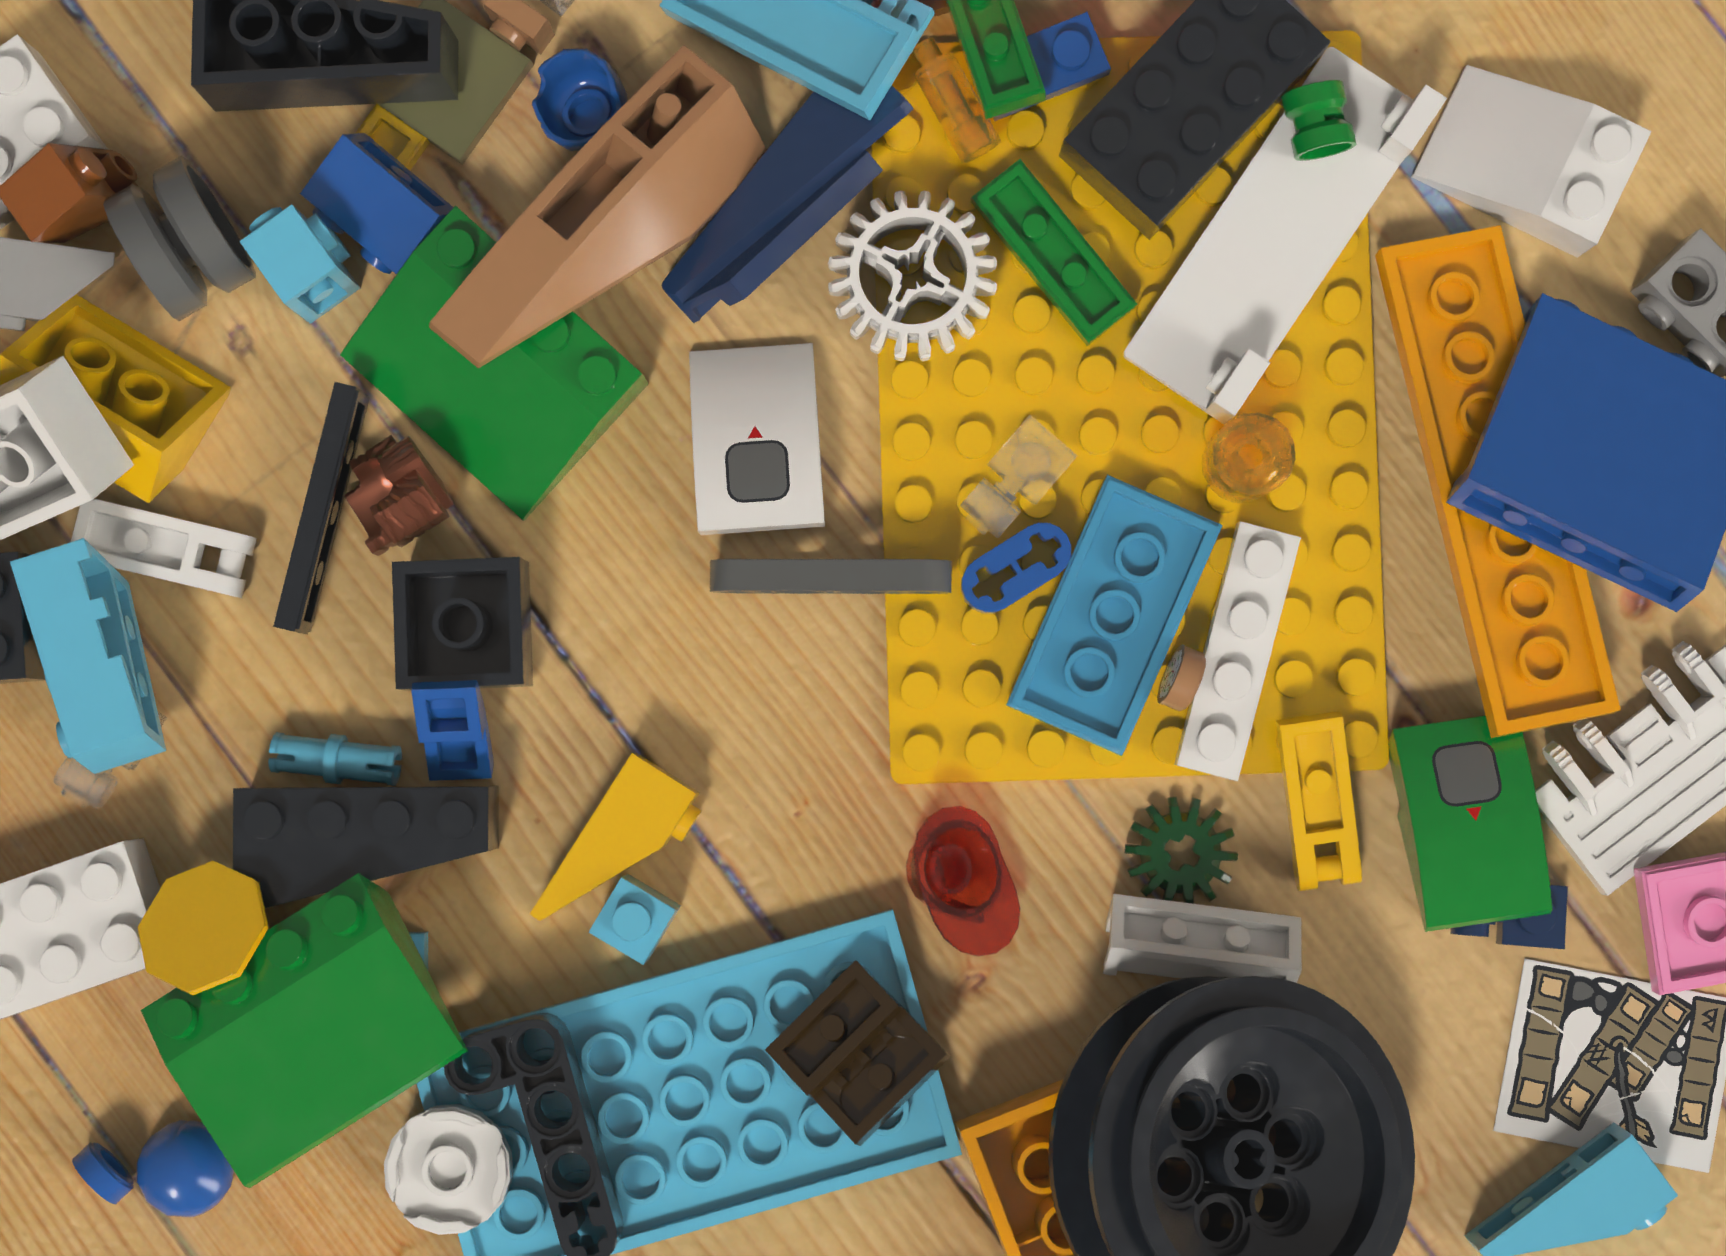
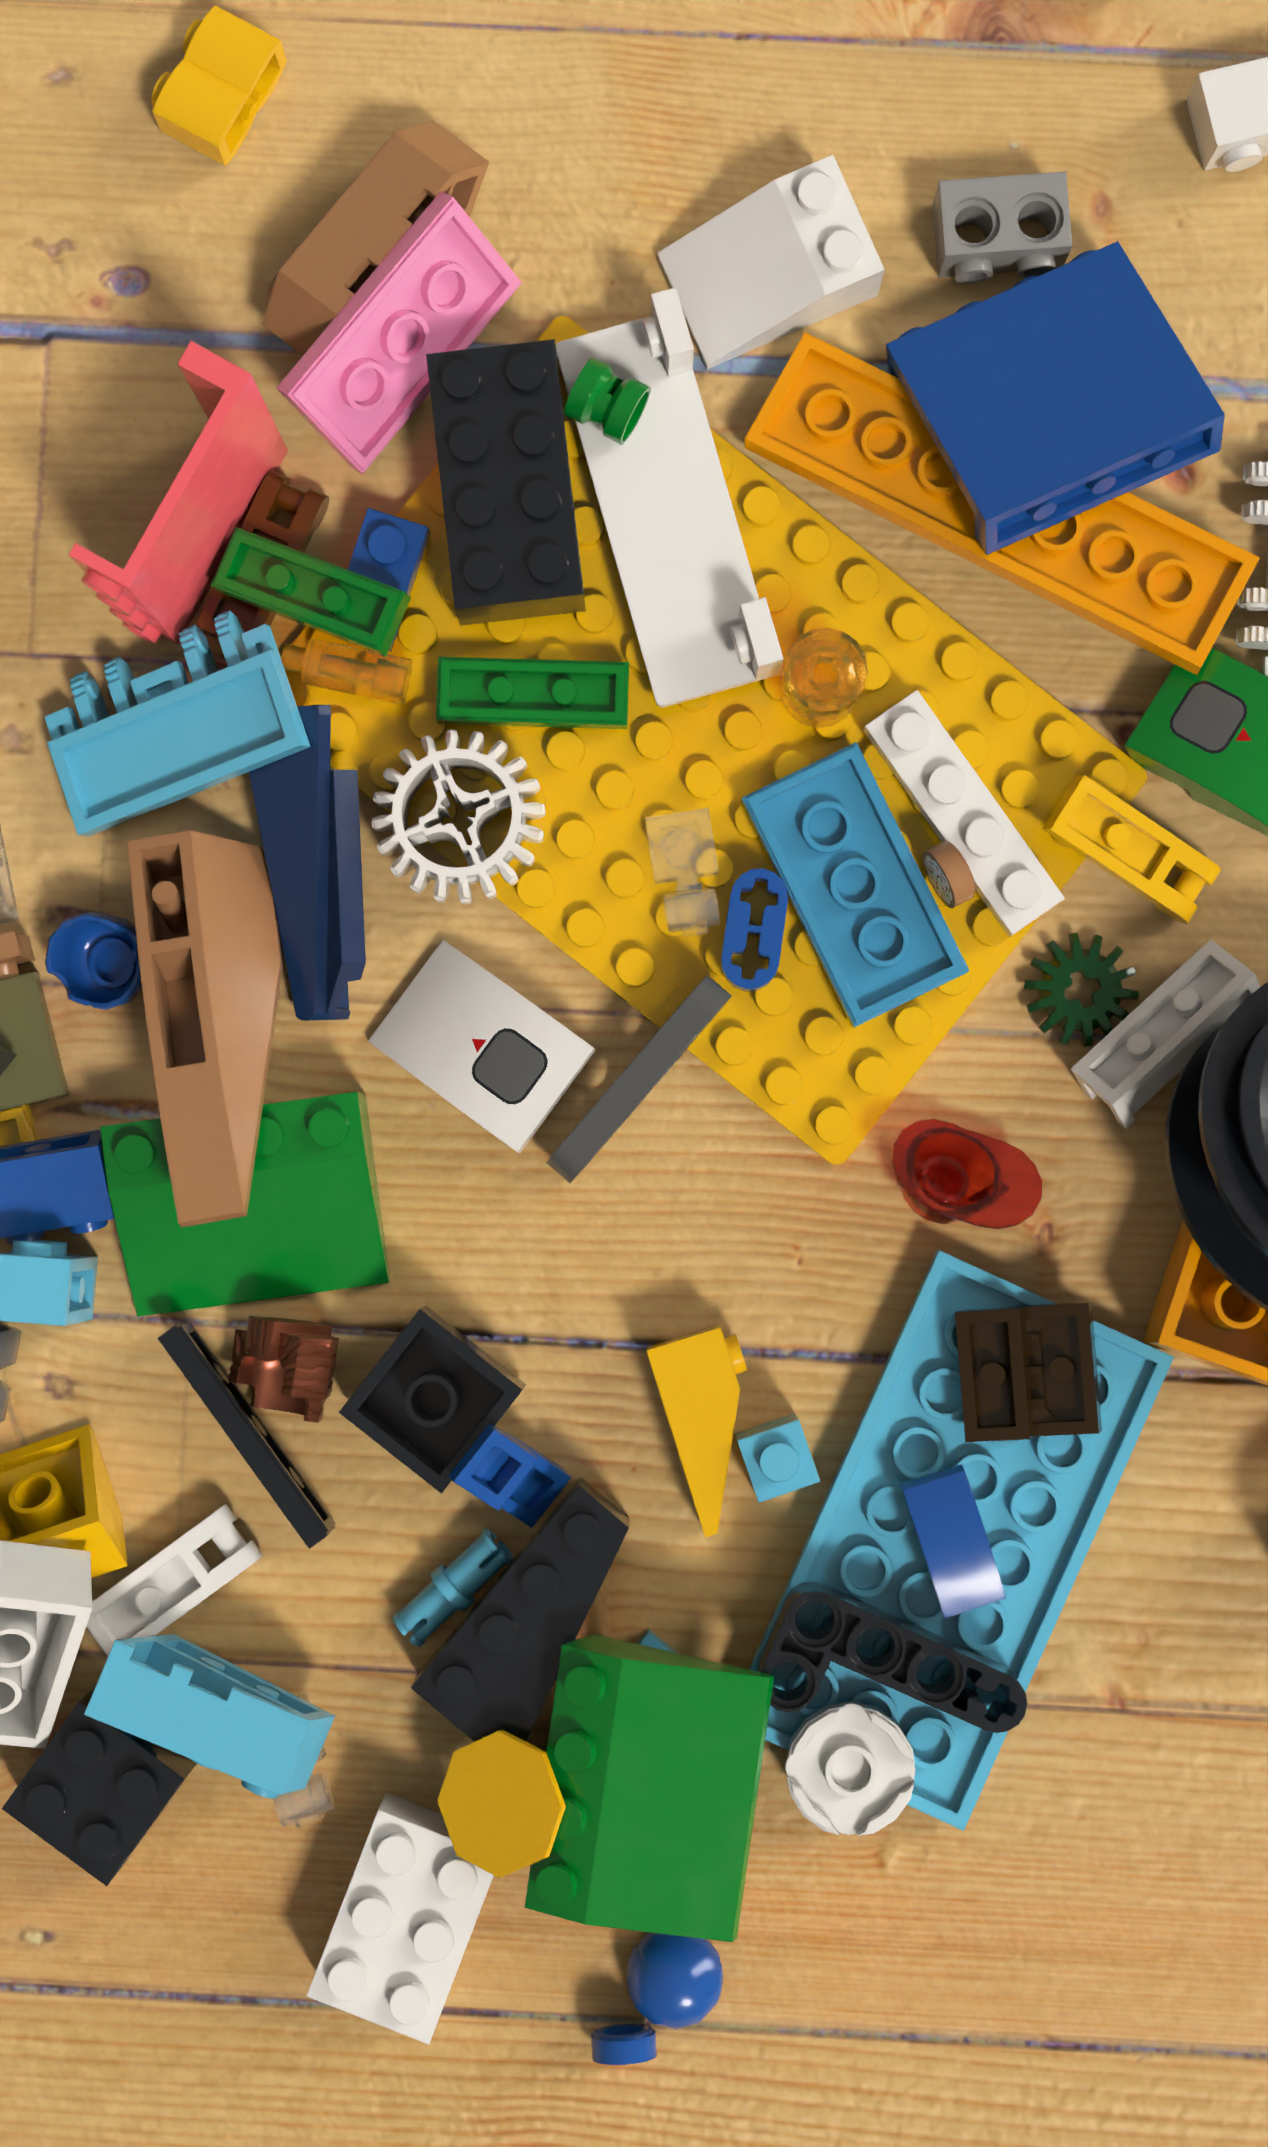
camera: 45 degrees left, 0 degrees up
(682, 1102) = (953, 1541): none -> blue slope

